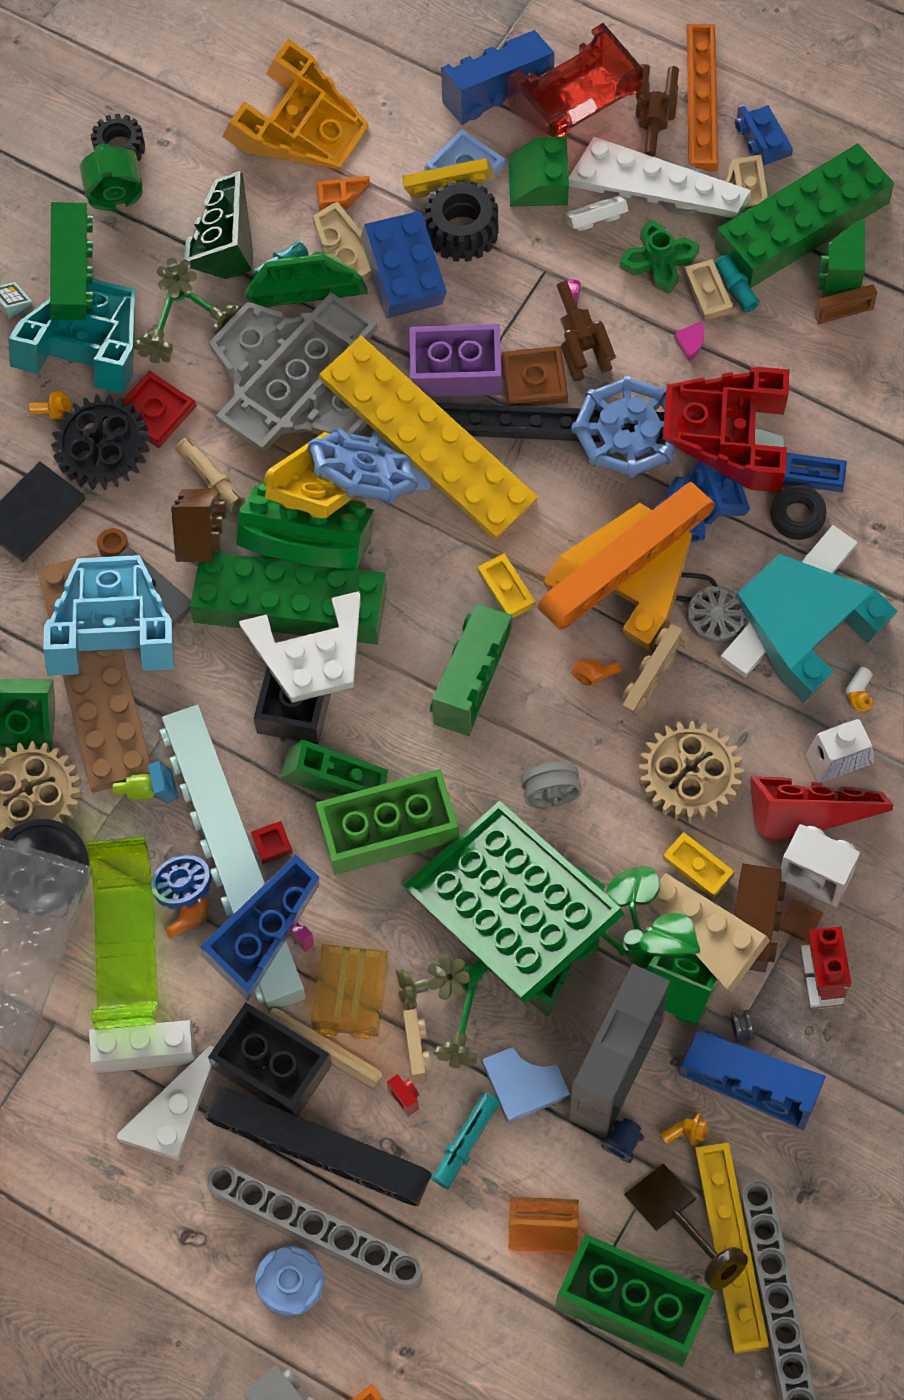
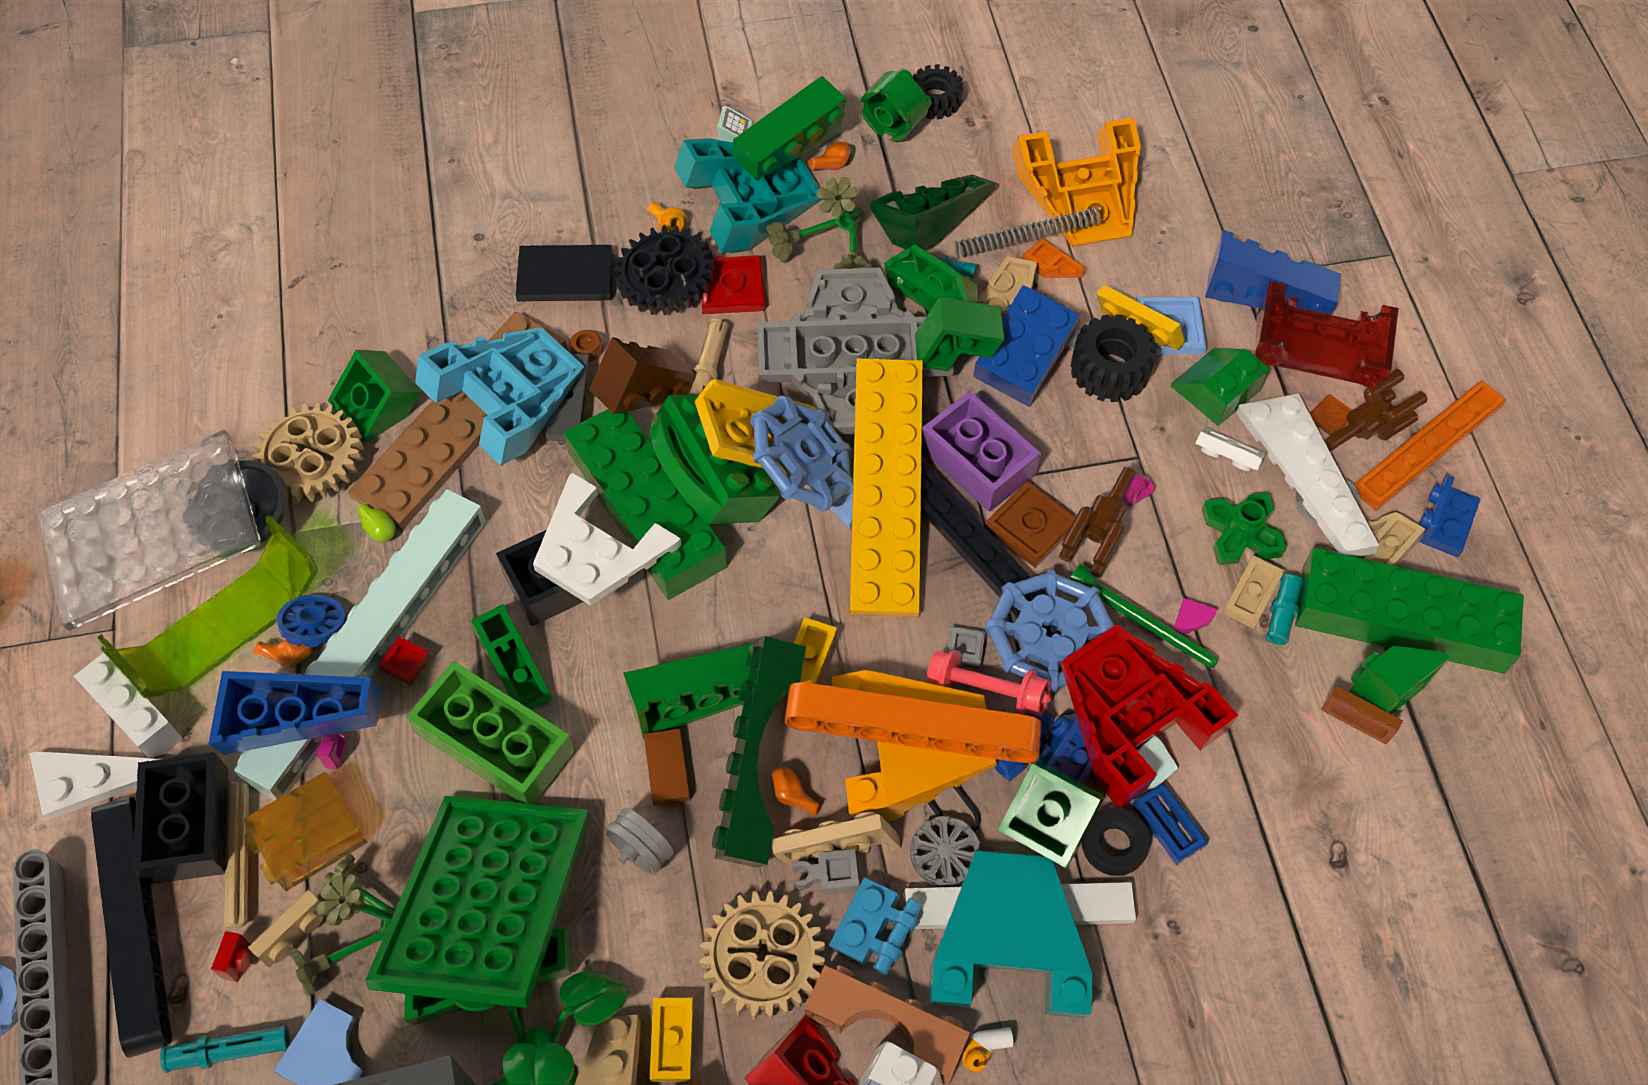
camera: 45 degrees right, 5 degrees down
(107, 254) = (833, 158): none -> orange animal
(163, 781) = (391, 535): dark azure tile -> none
(308, 187) = (1020, 231): none -> light grey piece
(363, 294) = (958, 328): none -> green brick
(506, 735) = (666, 767): none -> dark orange tile
(586, 489) = (969, 644): none -> light grey tile
(596, 712) = (745, 824): none -> dark green arch
(605, 377) = (1083, 576): none -> green piece
(626, 132) = (1330, 415): none -> clear orange tile
(666, 473) = (1031, 694): none -> coral piece
(671, 688) = (835, 872): none -> light grey plate
(721, 695) = (865, 921): none -> dark azure plate
(754, 528) = (1051, 813): none -> brick
(762, 744) = (843, 1000): none -> nougat arch

